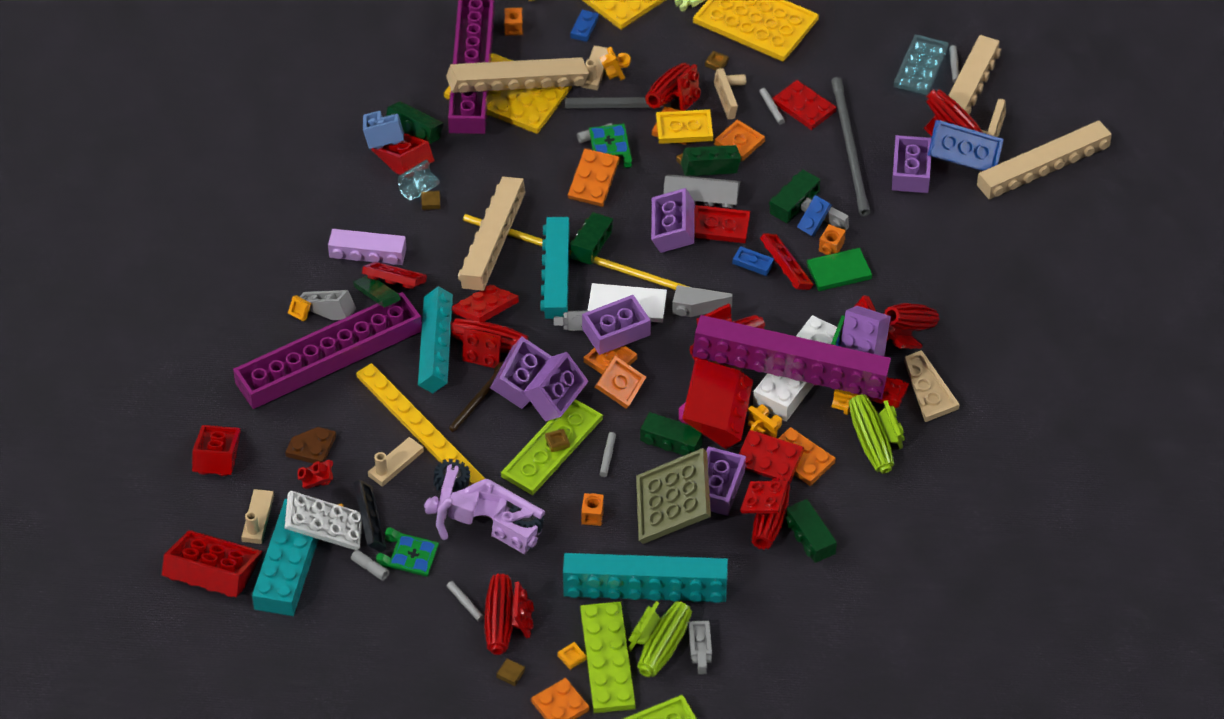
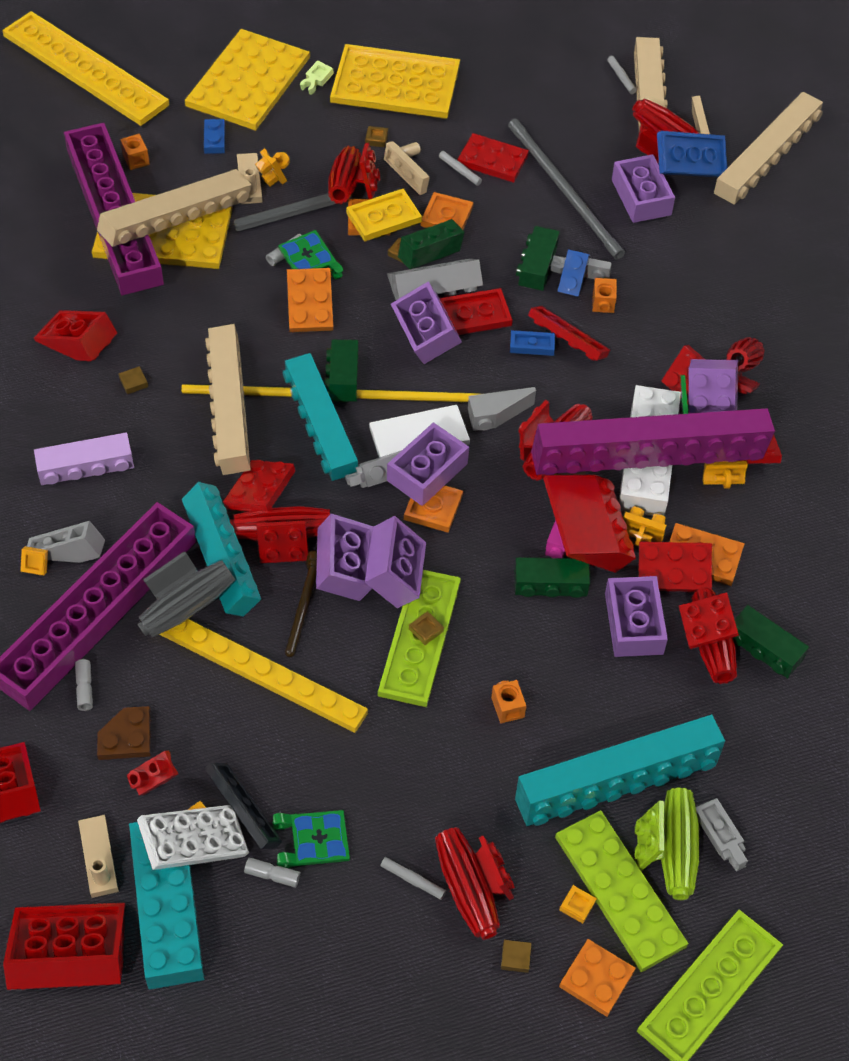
camera: 25 degrees left, 5 degrees up
(296, 405) = (83, 682): none -> light grey piece
(377, 291) = (124, 510): dark green tile -> none
(382, 130) = (42, 314): medium blue brick -> none
(389, 466) = (240, 720): tan piece -> none
(390, 359) = (181, 592): none -> dark grey plate
(394, 274) = (133, 483): red plate -> none
(416, 122) = (73, 294): dark green brick -> none
(417, 180) = (108, 362): clear light blue panel -> none
(512, 525) = (381, 736): lavender piece -> none
(607, 454) = (488, 625): light grey piece -> none
(620, 382) = (462, 531): orange plate -> none
(673, 496) = (600, 654): olive plate -> none
(839, 269) = (626, 325): green tile -> none
(876, 431) = (777, 497): lime plate -> none
(921, 64) = (590, 84): clear light blue plate -> none
(930, 389) = (798, 430): tan wing -> none

